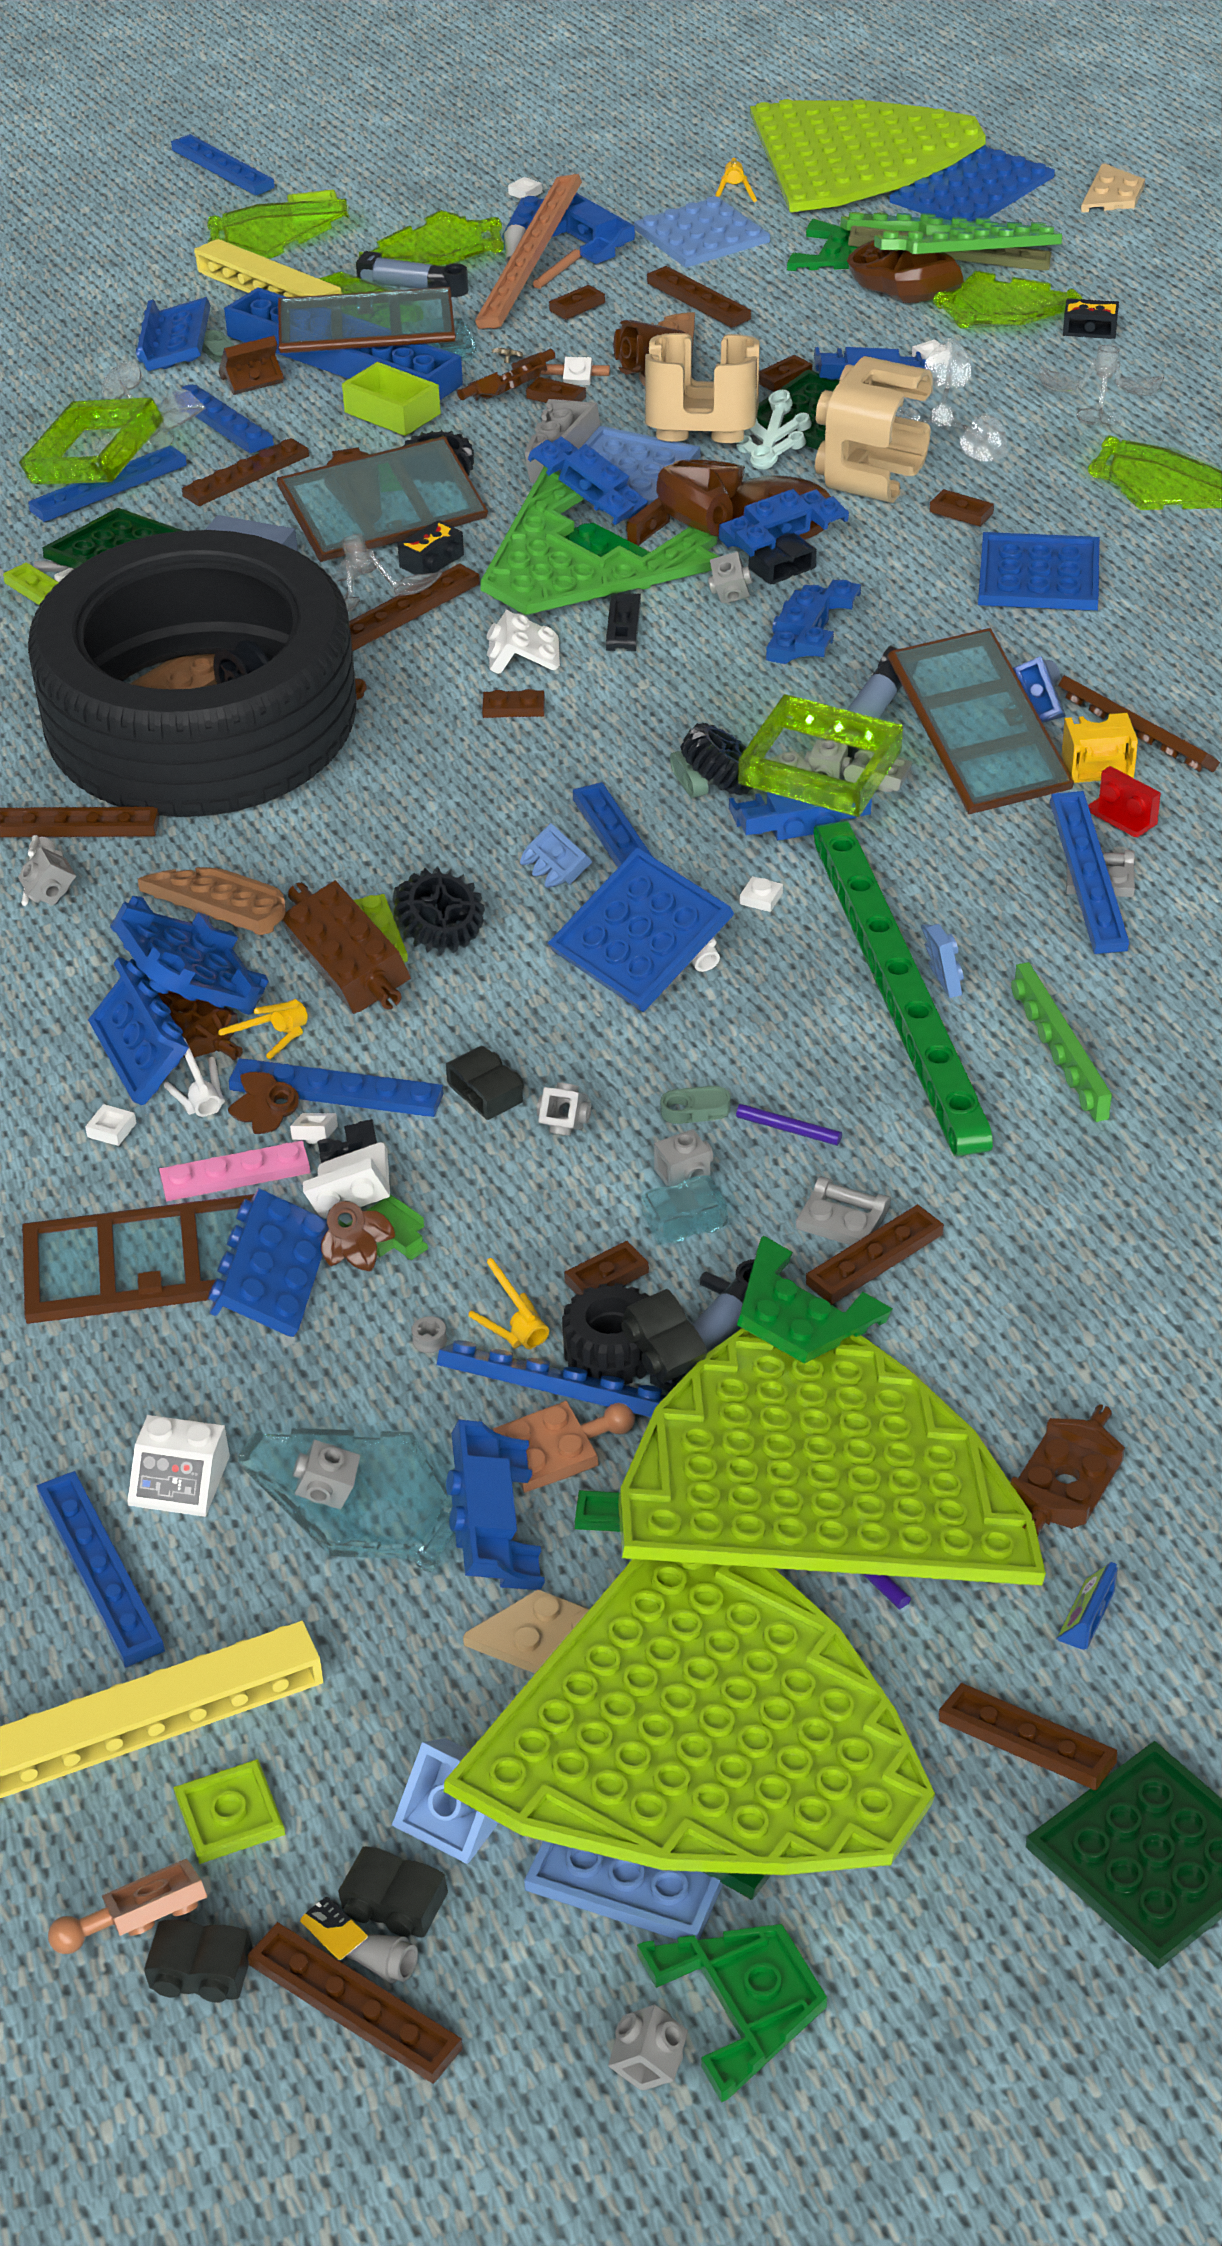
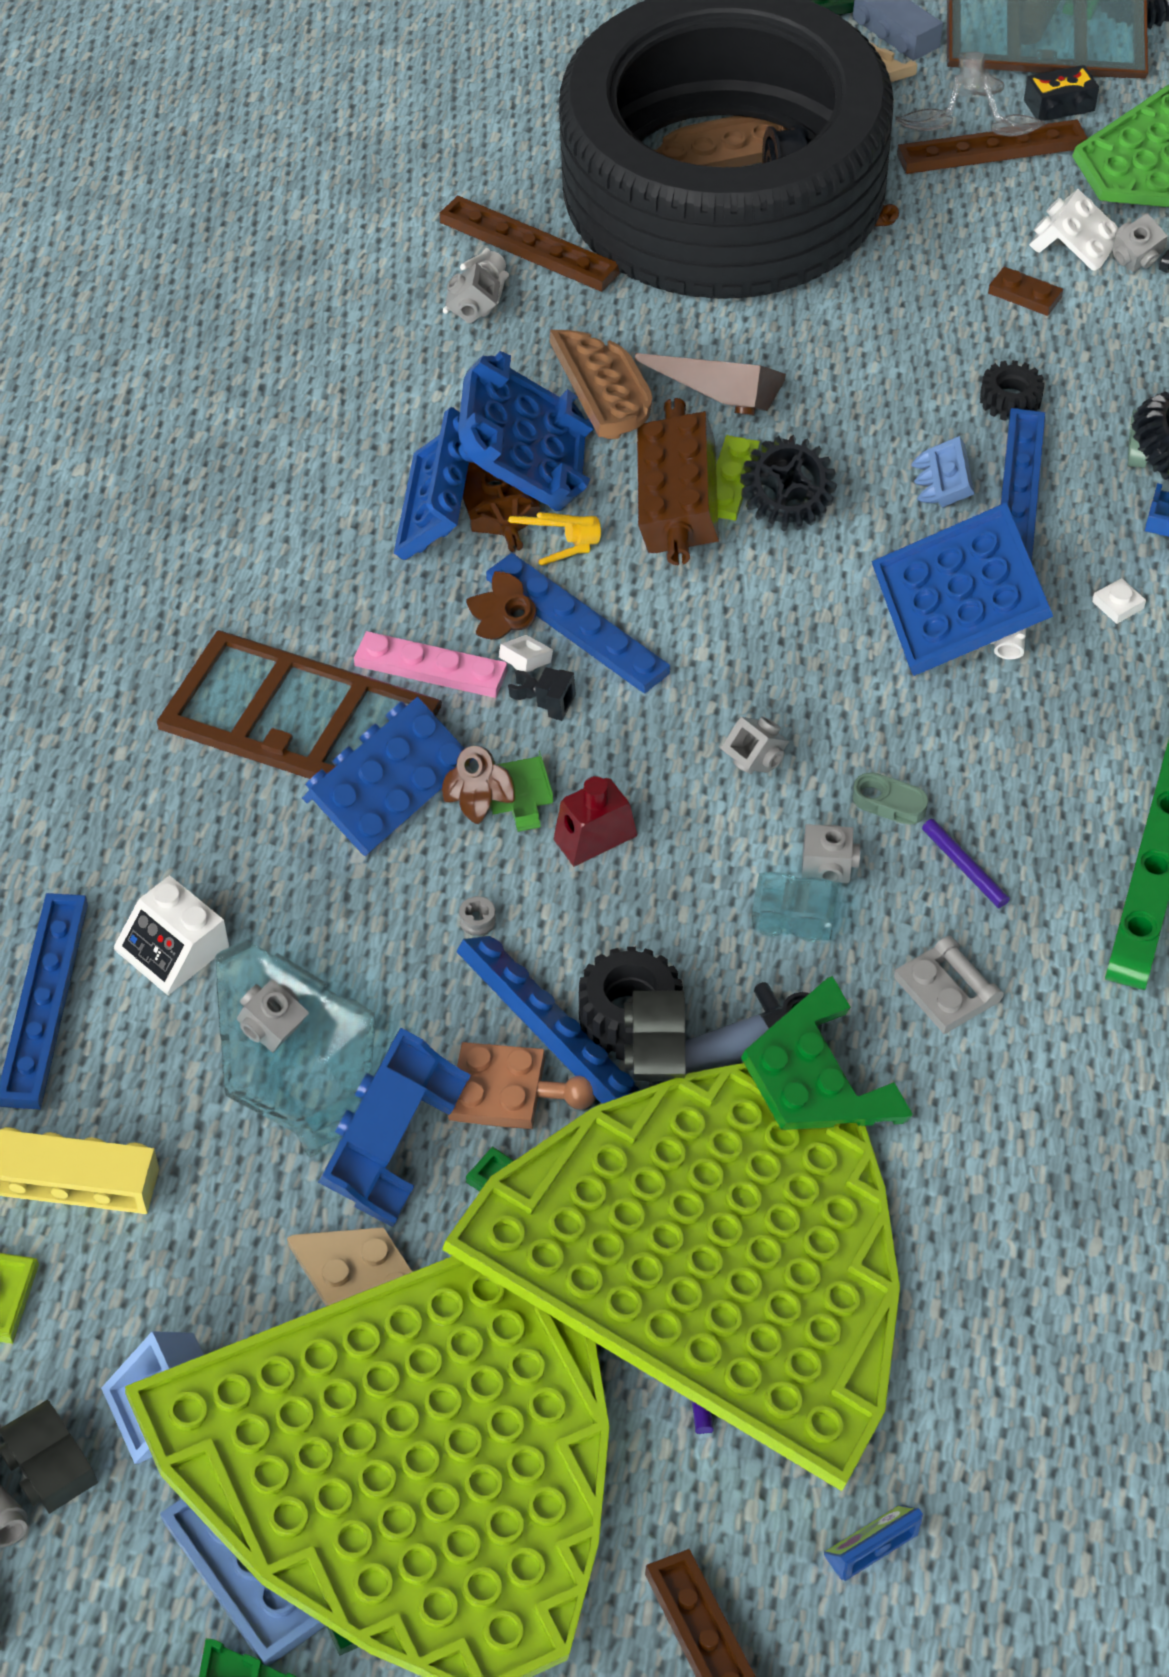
camera: 30 degrees right, 10 degrees up
(110, 1125) = (357, 567): white plate -> none
(202, 1096) = (453, 577): white plant -> none
(328, 858) = (732, 384): none -> wedge
(353, 1177) = (514, 727): white bracket -> none
(476, 1218) = (593, 820): none -> dark red torso
(485, 1082) = (709, 681): pearl dark grey brick -> none
(525, 1324) = (565, 955): yellow plant -> none
(559, 775) = (1011, 377): none -> black tyre
(582, 633) = (1139, 243): none -> light grey brick
(617, 1265) = (679, 933): reddish brown plate -> none
(874, 1254) = (944, 1045): reddish brown plate -> none
(1072, 1449) = (979, 1357): reddish brown plate -> none

